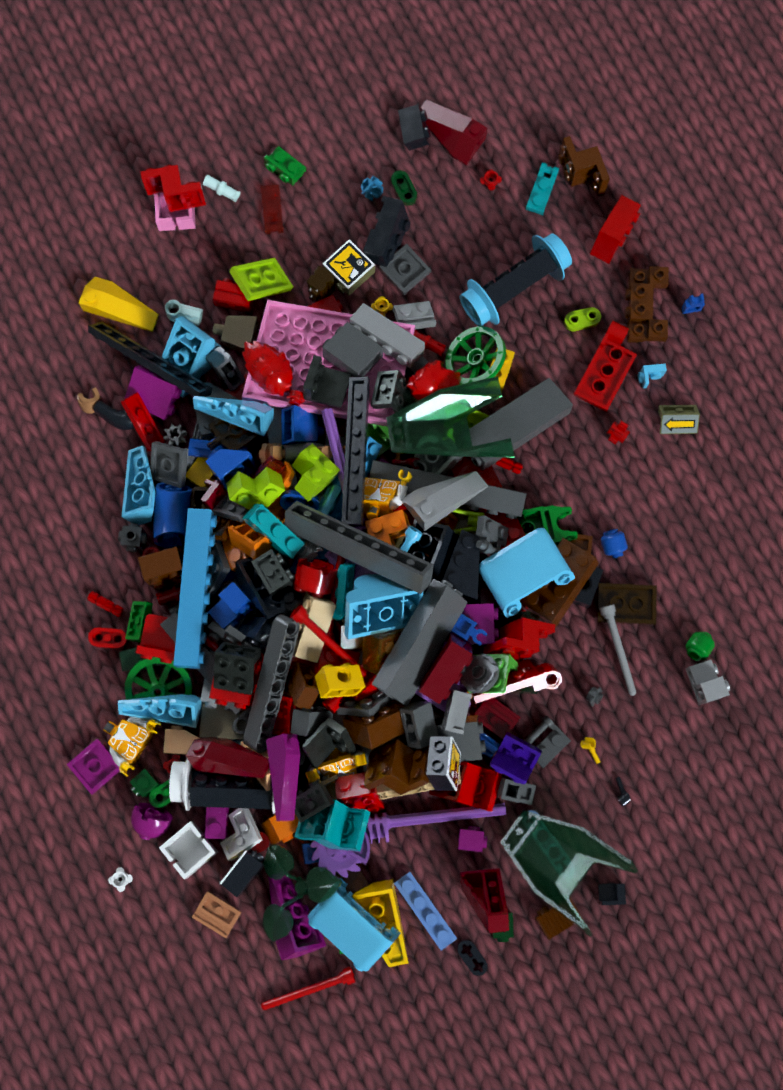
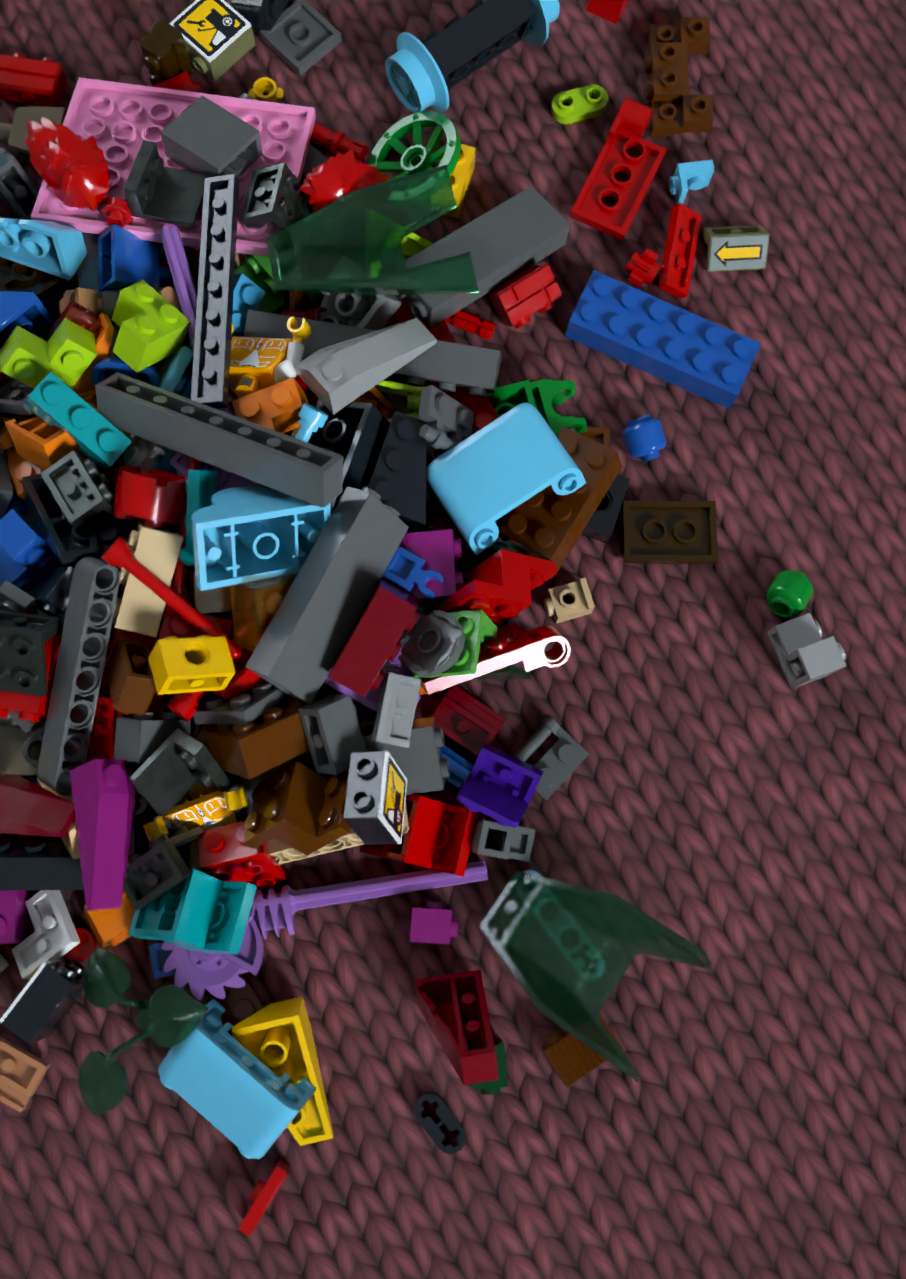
camera: 10 degrees left, 0 degrees up
(261, 279) = (70, 50): lime plate -> none
(302, 937) = (147, 1102): magenta wedge -> none
(346, 976) = (227, 1167): red piece -> none
(366, 994) = (263, 1195): none -> red plate
(390, 336) = (280, 123): light grey brick -> none
(416, 314) = (326, 98): light grey plate -> none
(425, 910) = (359, 1047): medium blue plate -> none
(542, 448) = (524, 295): none -> red brick
(570, 645) = (561, 611): none -> tan brick
(590, 743) = (620, 757): yellow hand -> none
(594, 696) = (625, 680): dark grey plate -> none
(608, 613) = (641, 546): light grey piece -> none
(612, 894) = (668, 1003): black panel -> none
(624, 798) = (681, 842): black hand -> none
(628, 480) = (662, 339): none -> blue brick
(642, 421) = (679, 251): none -> red plate
(693, 304) = (751, 73): blue plate -> none

